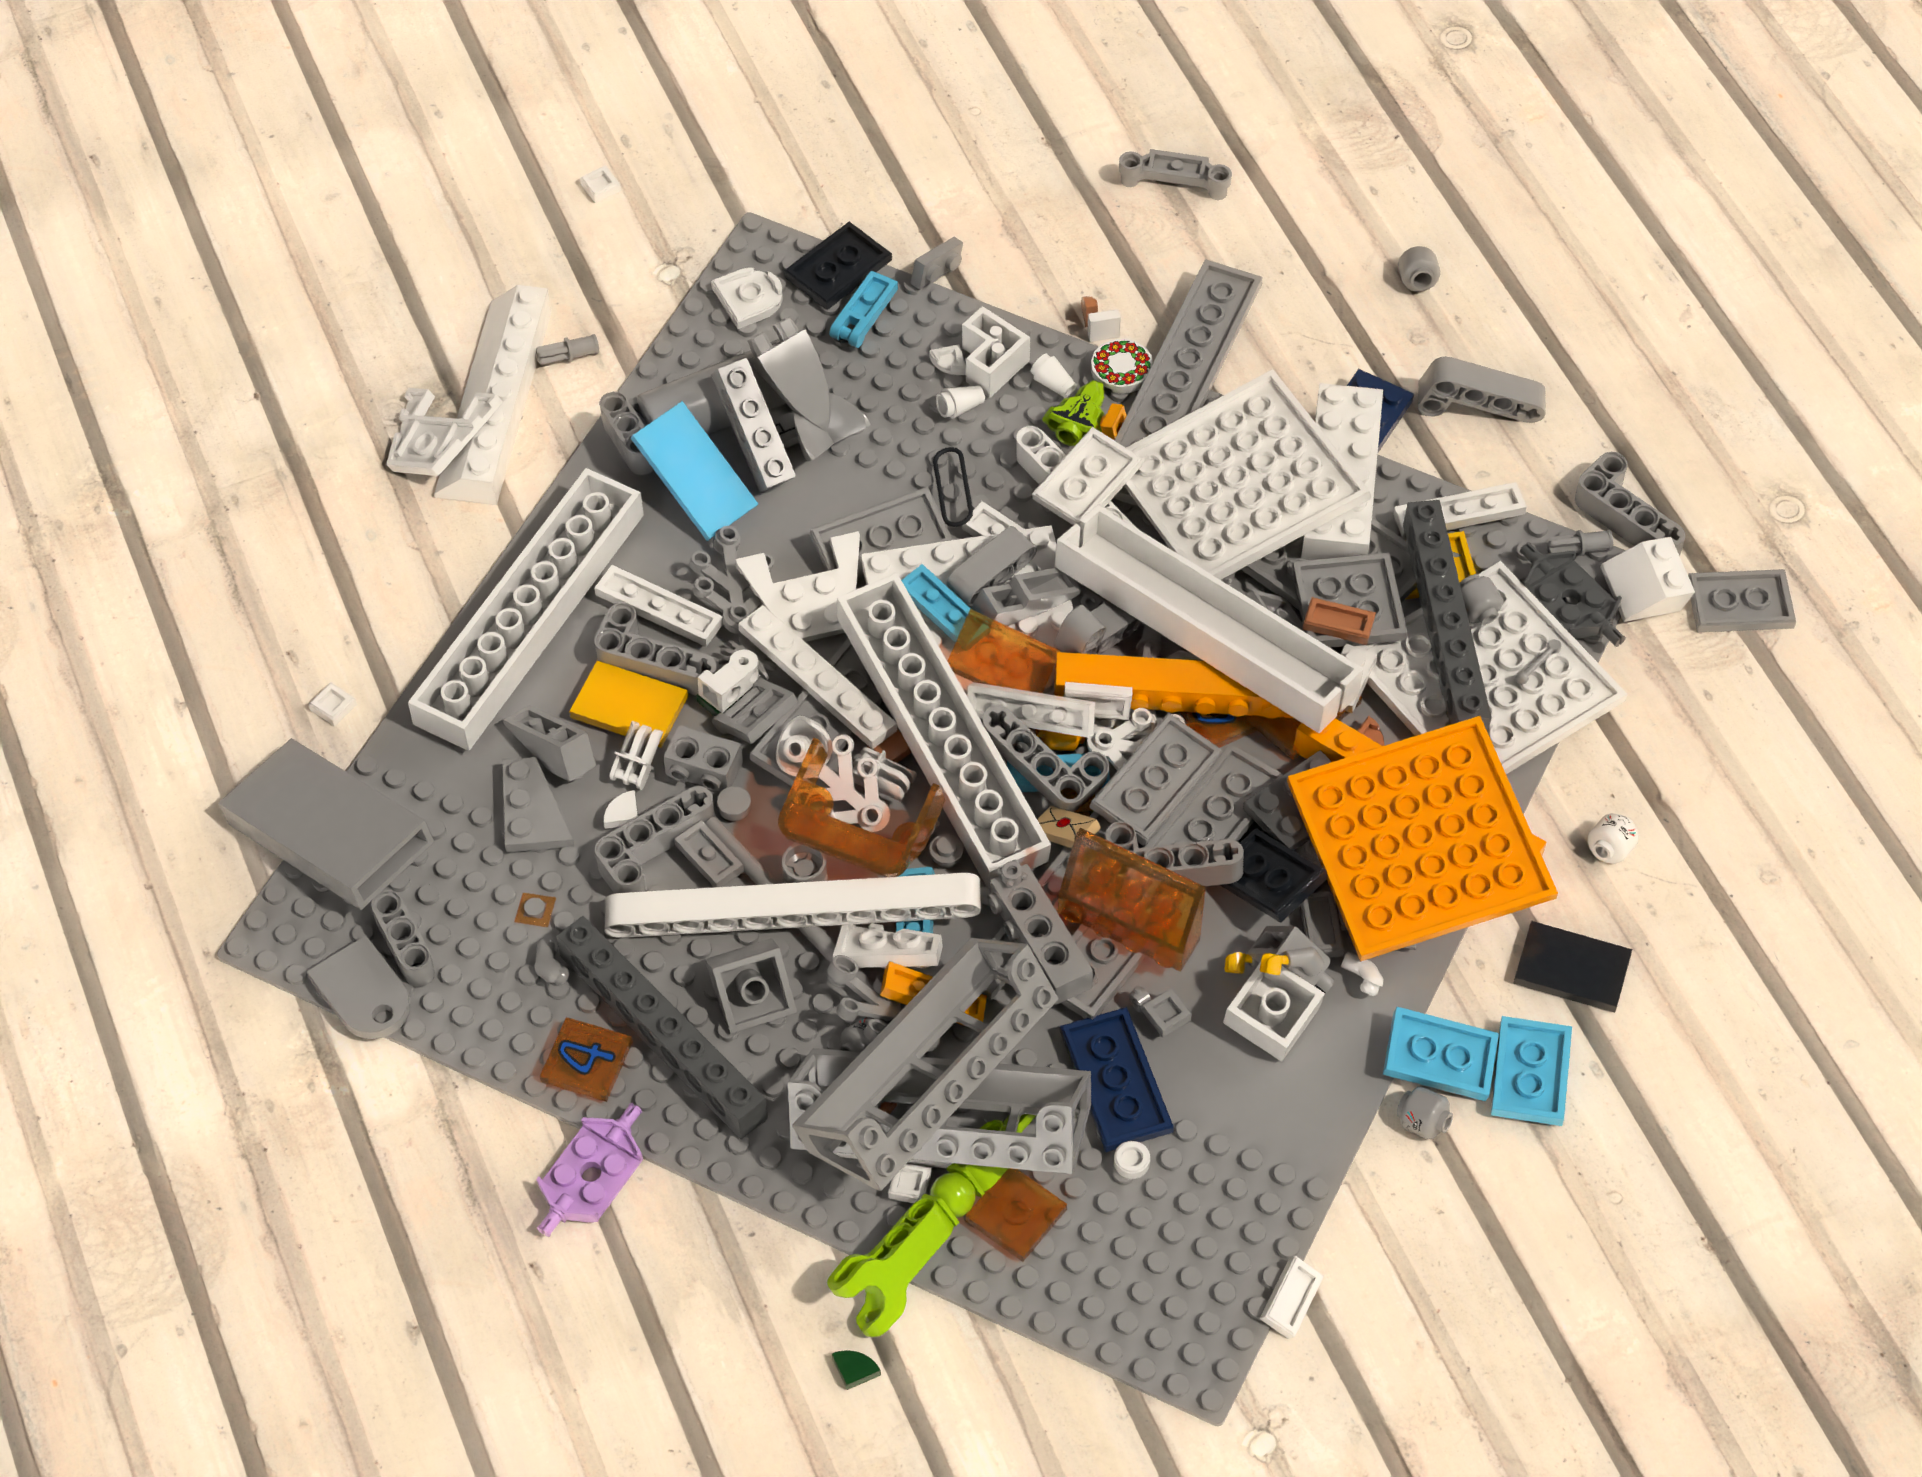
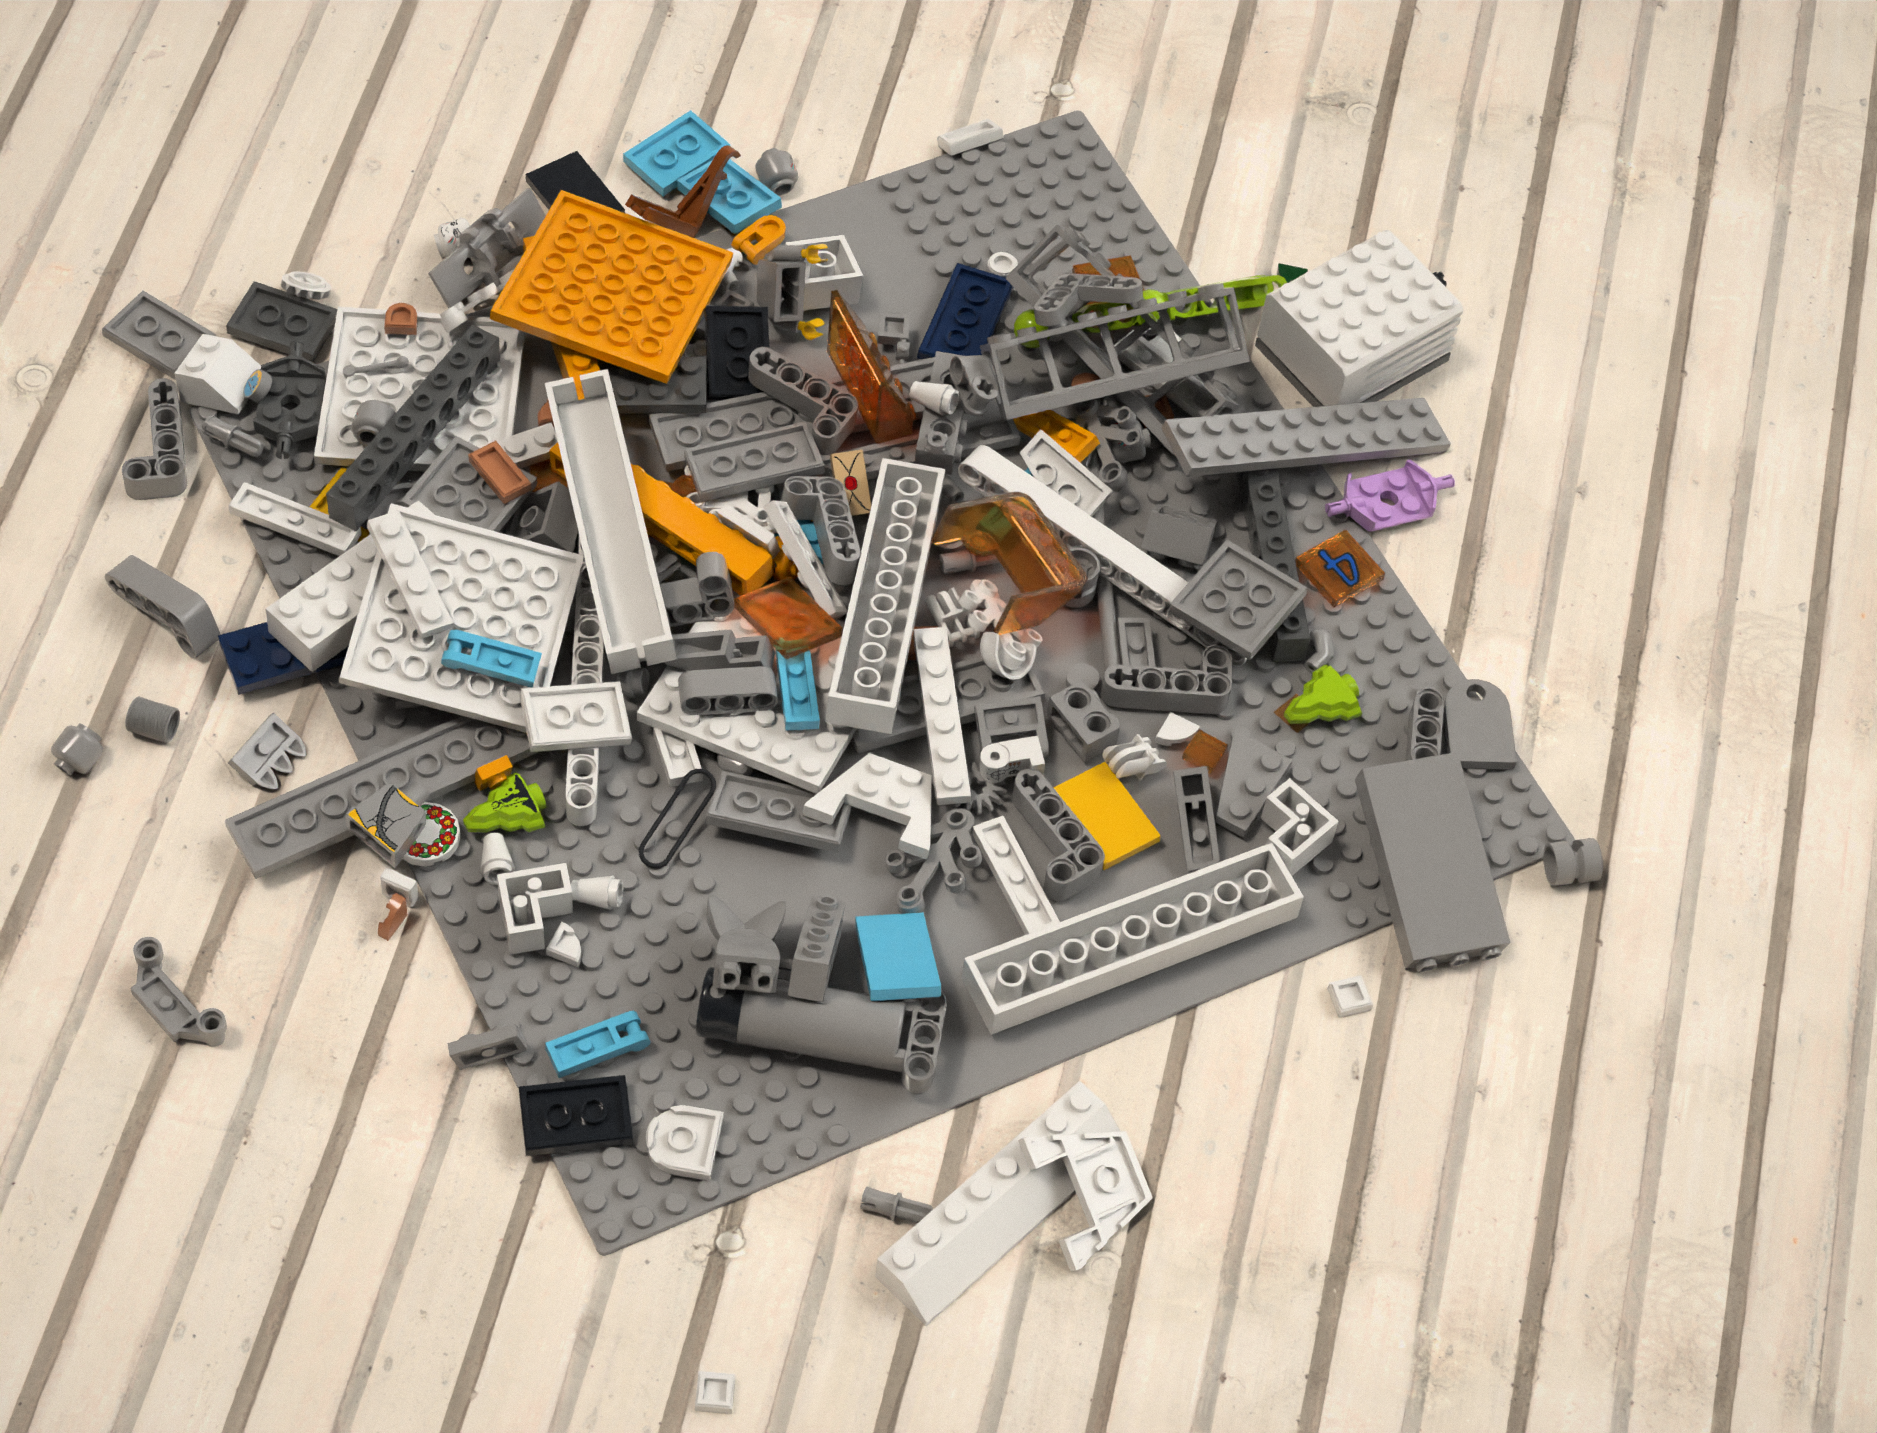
camera: 150 degrees left, 0 degrees up
(216, 913) = (1567, 861): none -> light grey wheel
(454, 778) = (1300, 825): none -> white brick
(513, 919) = (1326, 698): none -> lime rock
(585, 809) = (1204, 751): none -> clear orange tile
(639, 911) = (1238, 599): none -> light grey plate
(696, 1140) = (1304, 436): none -> light grey plate
(735, 1311) = (1360, 324): none -> white piece
(1009, 1097) = (1071, 288): none -> light grey beam
(1043, 946) = (974, 382): none -> light grey piece
(1048, 908) = (935, 396): none -> white cone
(1145, 333) = (389, 820): none -> light grey torso
(1182, 456) = (491, 658): none -> medium azure plate
(1293, 351) = (267, 750): none -> light grey plate
(1300, 457) = (409, 574): none -> white plate
(1366, 1032) = (768, 232): none -> light orange plate
(1393, 319) = (152, 719): none -> light grey piece
(1459, 975) = (694, 205): none -> dark orange hinge
(1520, 734) = (455, 315): none -> white plant
(1563, 711) = (401, 319): none -> nougat tile
(1582, 847) = (482, 243): none -> light grey piece
(1605, 583) = (257, 385): none -> light grey tile
(1663, 671) = (277, 318): none -> dark grey plate
(1693, 707) = (306, 285): none -> white gear

